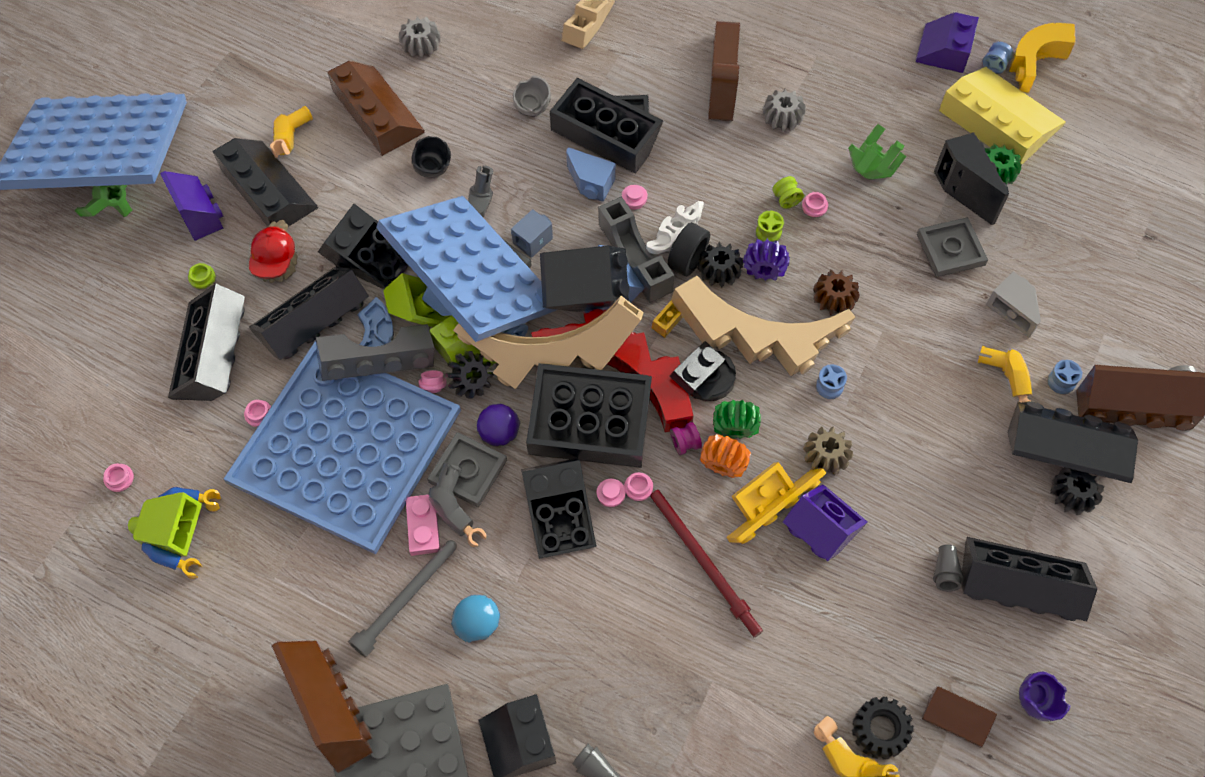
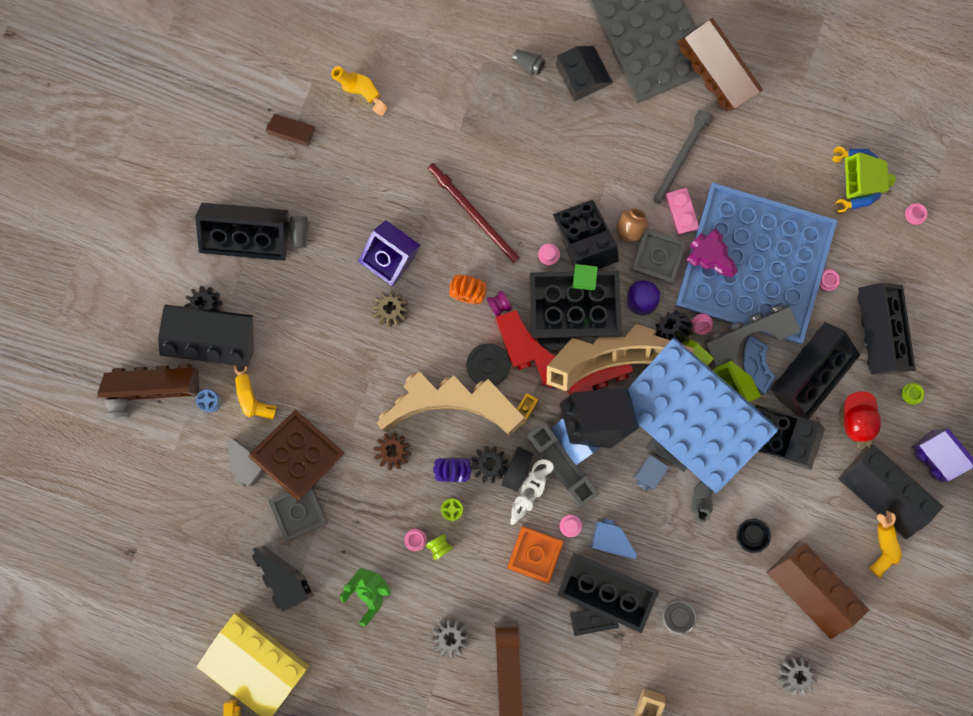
camera: 170 degrees right, 20 degrees up
(400, 454) = (711, 253): none -> magenta rock
(446, 505) = (664, 220): dark grey arm -> none
(475, 618) = (629, 148): dark azure hair -> none
(494, 508) = (632, 225): none -> medium nougat head
(571, 437) = (585, 277): none -> bright green tile
(638, 486) = (529, 262): bright pink plate -> none
(678, 177) = (535, 554): none -> orange tile
(697, 367) = (497, 358): plate -> none
(736, 419) = (462, 320): green gear -> none
(768, 495) = (431, 265): yellow bracket -> none
(832, 374) = (389, 366): medium blue wheel -> none
(895, 714) = (338, 101): black tyre -> none
(954, 297) = (296, 455): none -> reddish brown plate
(1006, 162) = (254, 610): green gear -> none
(1043, 697) = (233, 146): dark purple hair -> none

